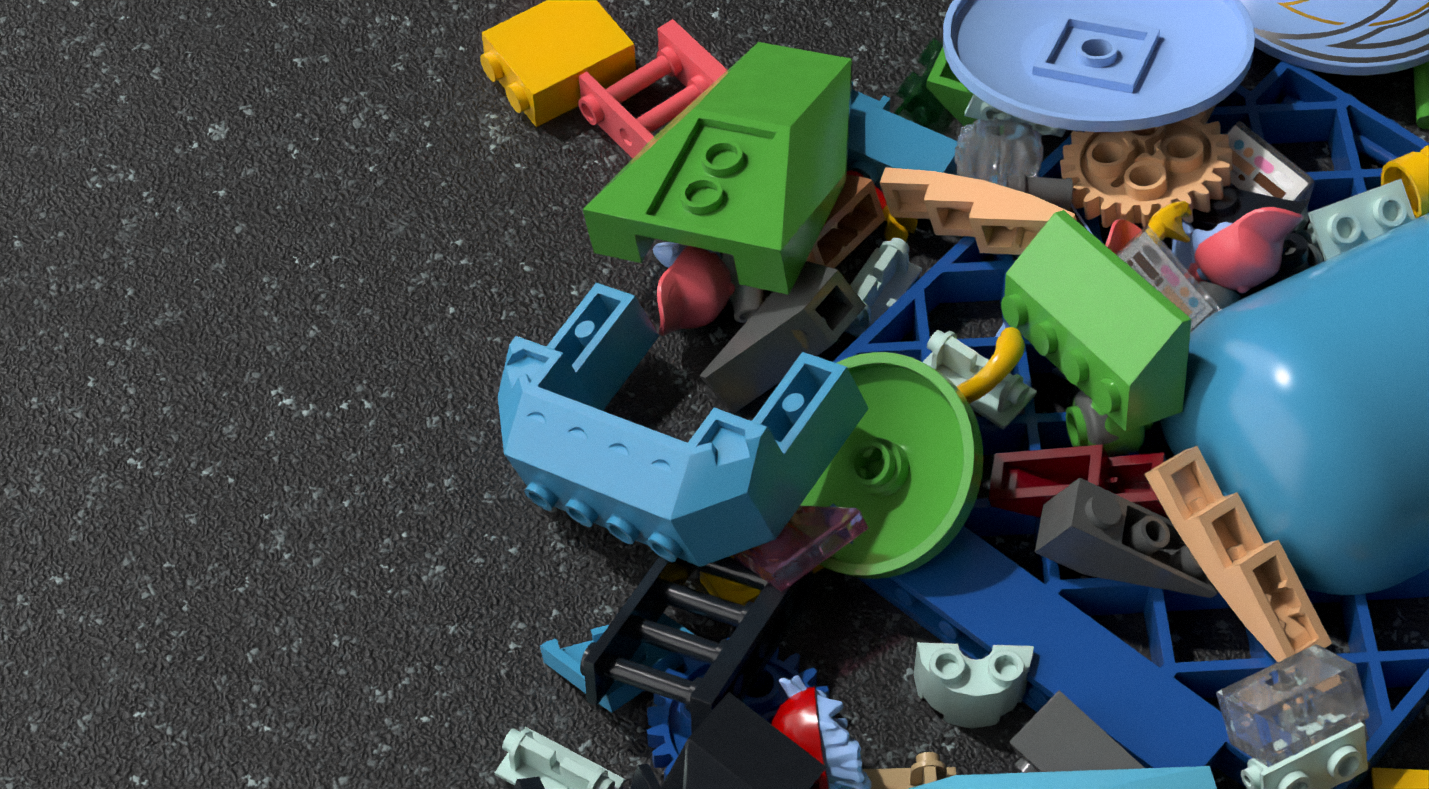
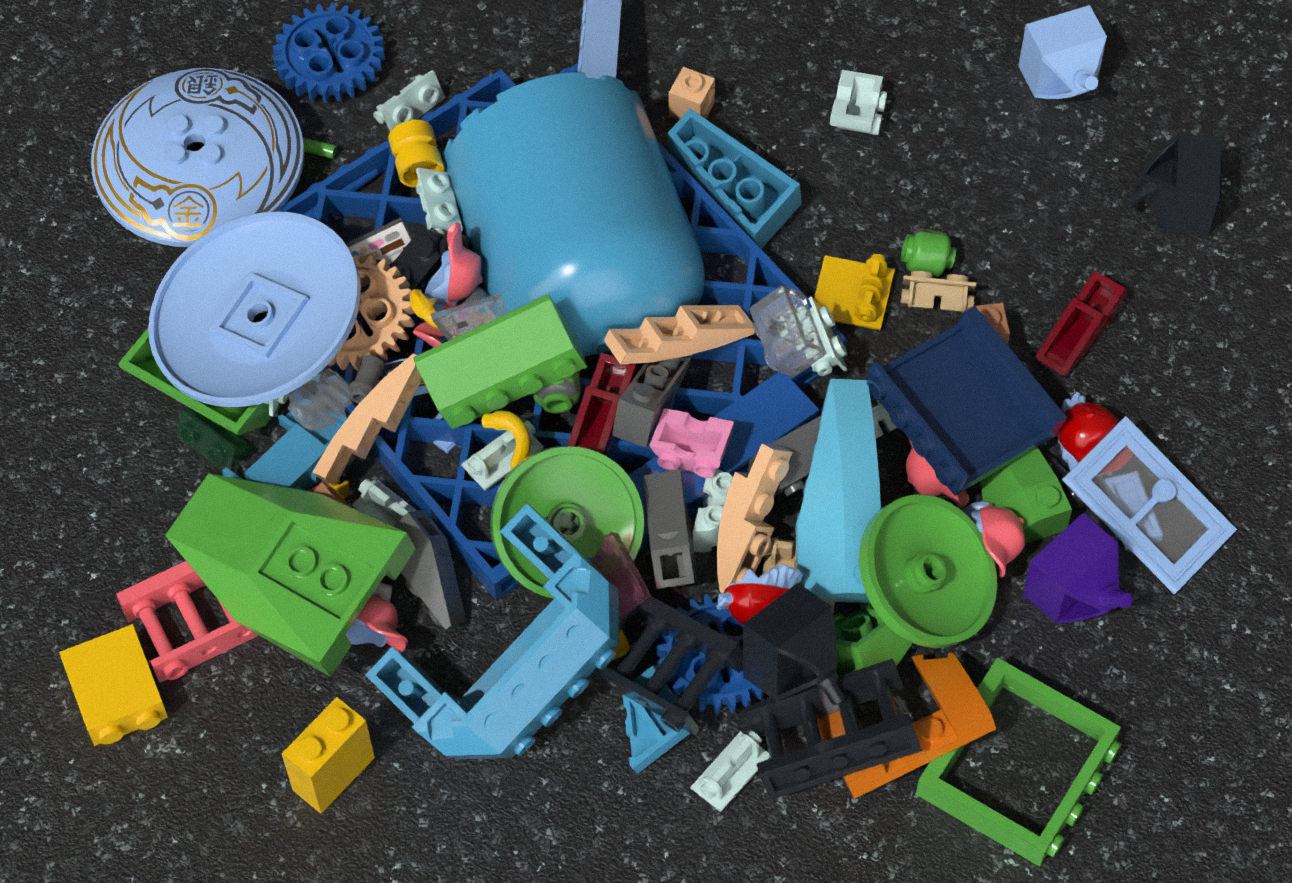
camera: 80 degrees left, 5 degrees up
(481, 271) = (328, 755): none -> yellow brick
(884, 620) = (669, 530): none -> dark grey slope
(951, 701) = (742, 532): none -> light nougat slope
(1058, 603) = (690, 443): none -> bright pink cylinder

